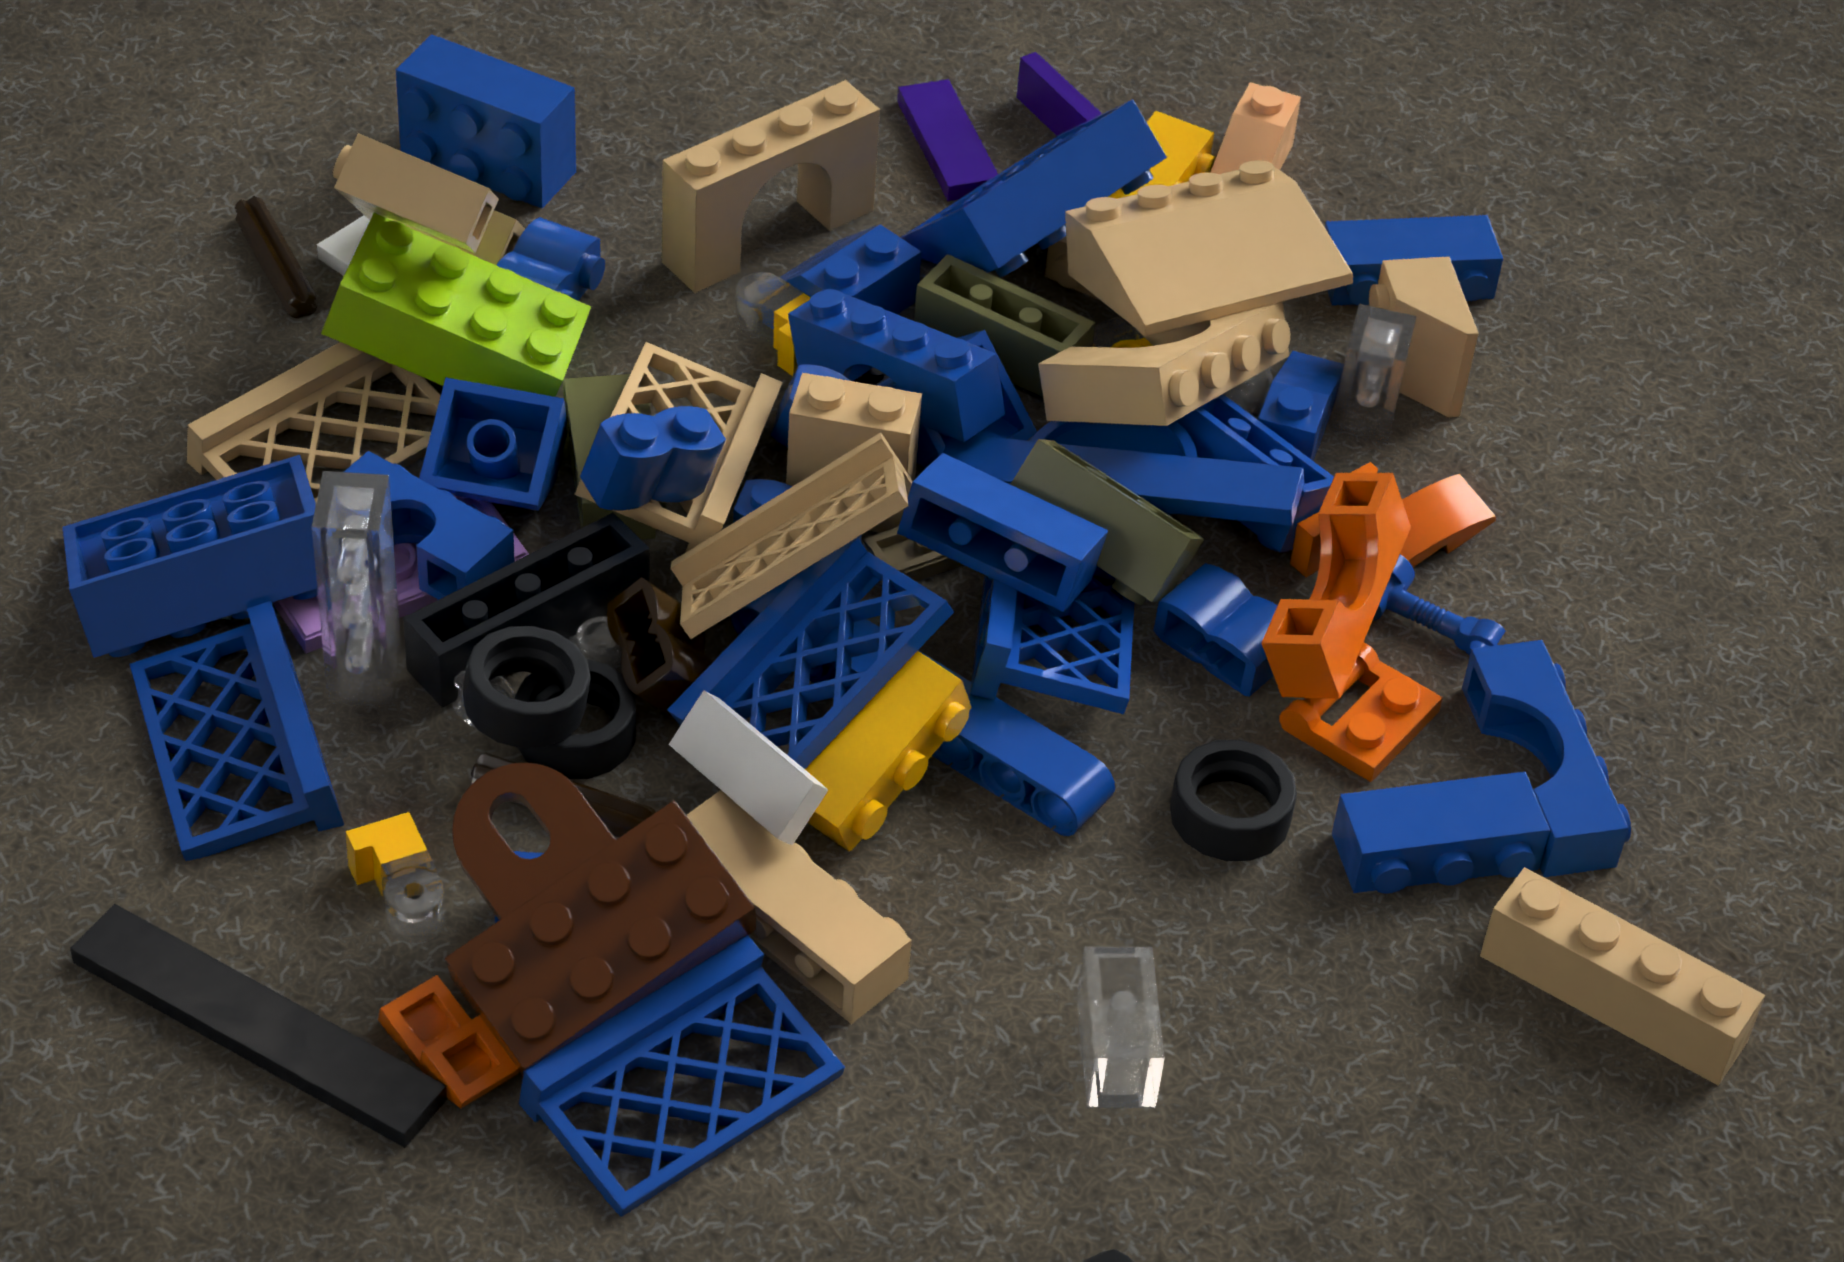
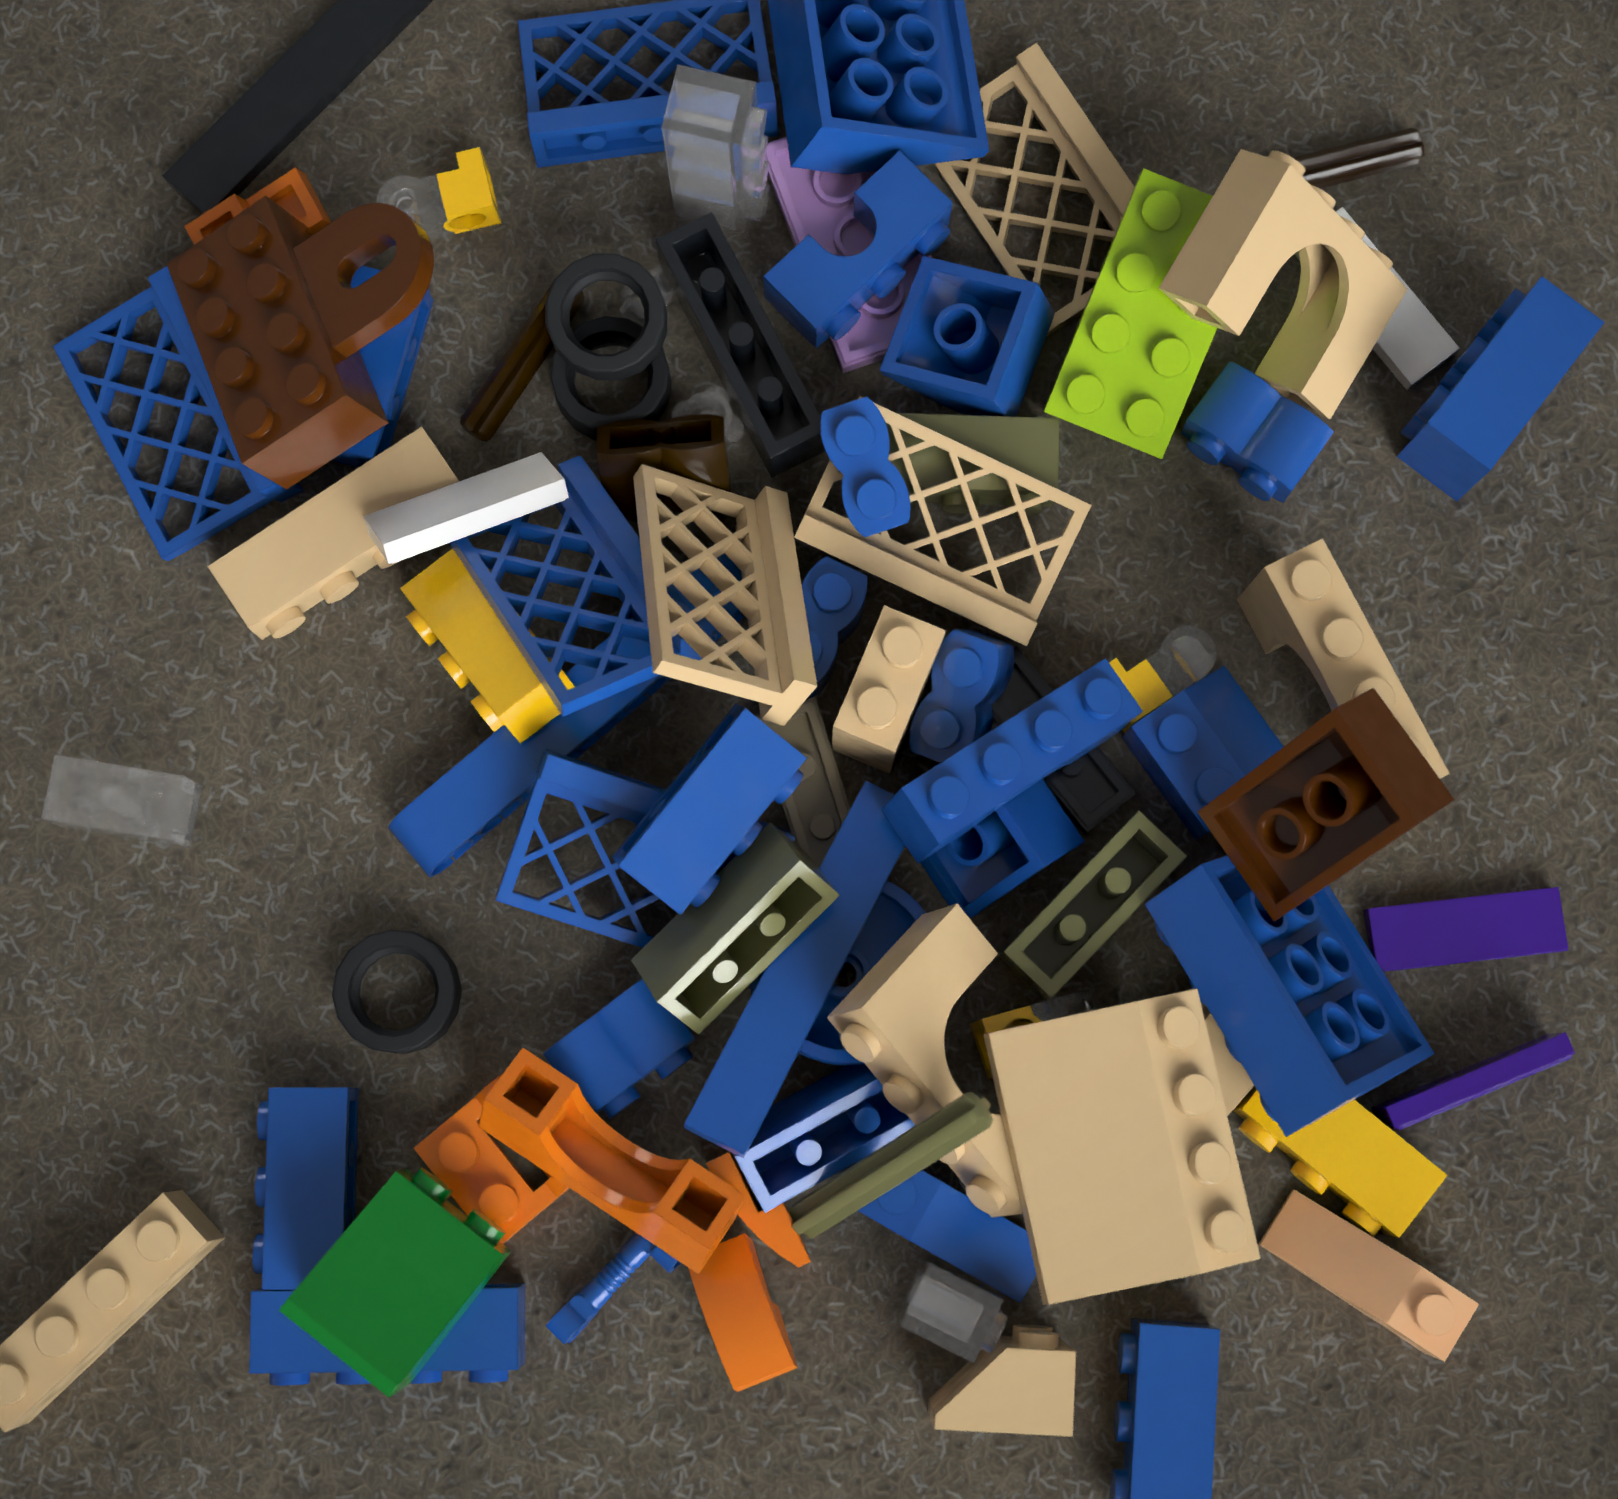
camera: 105 degrees right, 35 degrees up
(896, 135) = (1325, 803): none -> reddish brown slope
(1274, 375) = (891, 1164): none -> olive axle
(1503, 692) = (398, 1280): none -> green slope

